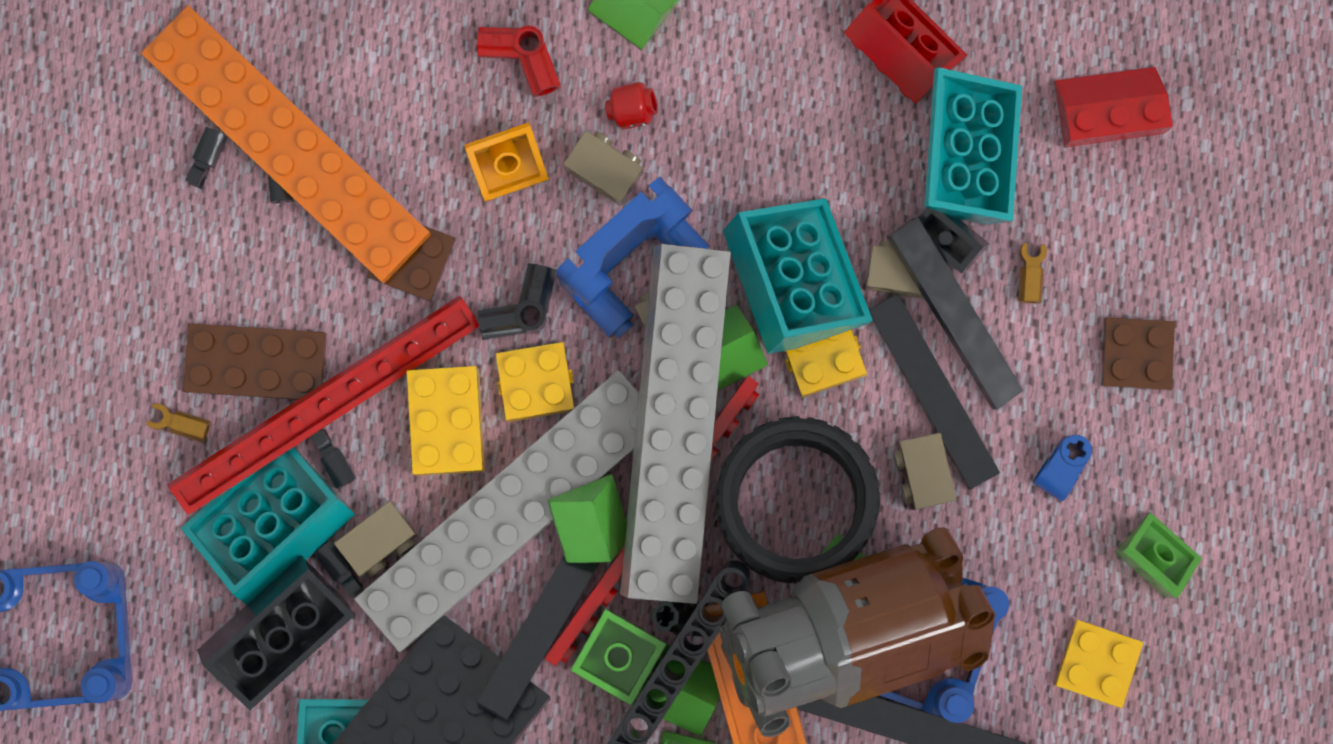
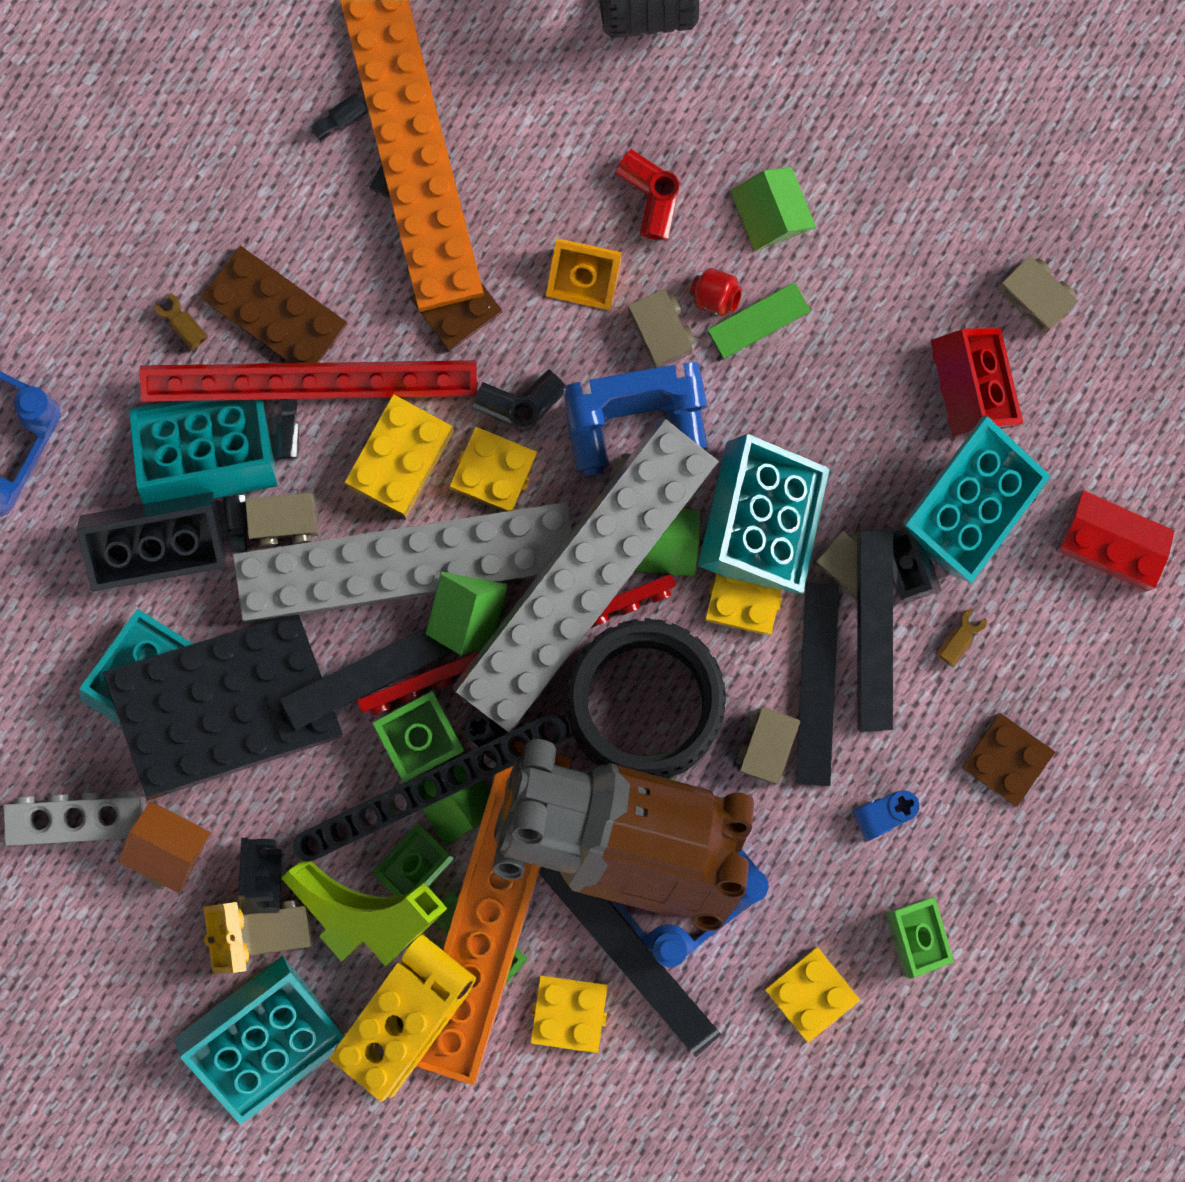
camera: 30 degrees right, 0 degrees up
(684, 108) = (759, 321): none -> bright green tile

